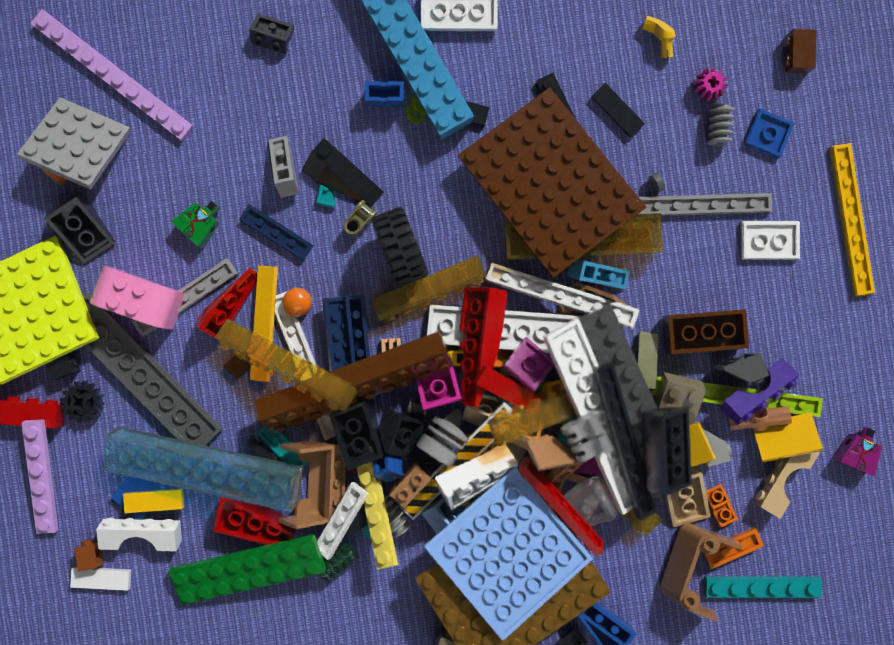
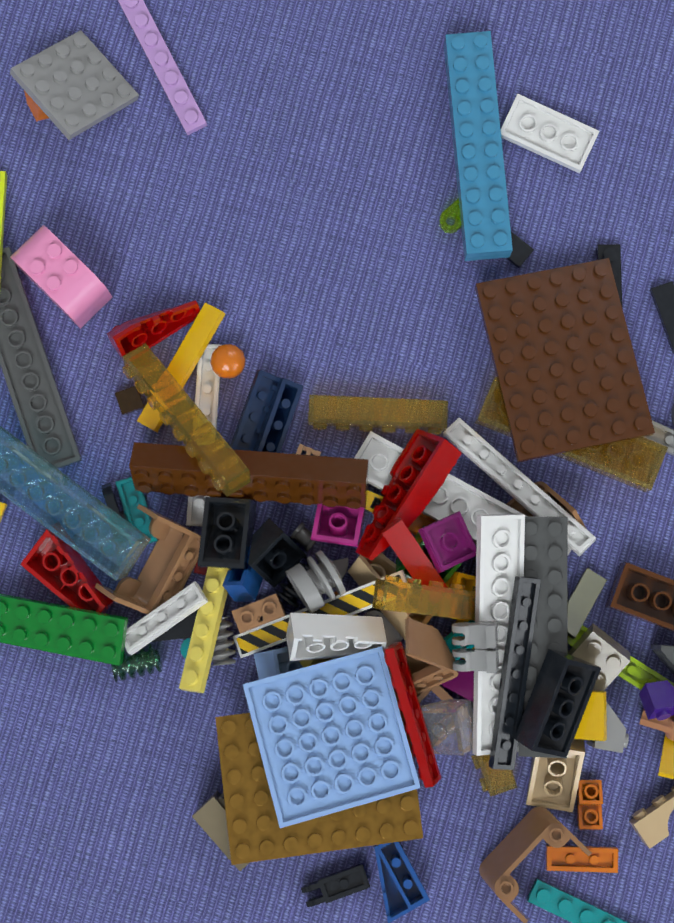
camera: 25 degrees right, 5 degrees down
(80, 227) = (35, 175): black slope -> none
(197, 290) = (122, 300): light grey tile -> none
(198, 222) = (163, 227): green torso -> none
(271, 33) = (336, 66): black bracket -> none
(276, 232) = (241, 277): dark blue tile -> none
(283, 167) = (282, 211): light grey slope -> none
(325, 197) = (311, 264): teal tile -> none
(333, 170) = (336, 242): black wedge -> none
(360, 218) = (341, 301): olive piece -> none
(385, 94) = (427, 184): blue brick -> none
(399, 246) = (368, 351): black tyre -> none
(598, 274) = (570, 483): dark azure slope -> none

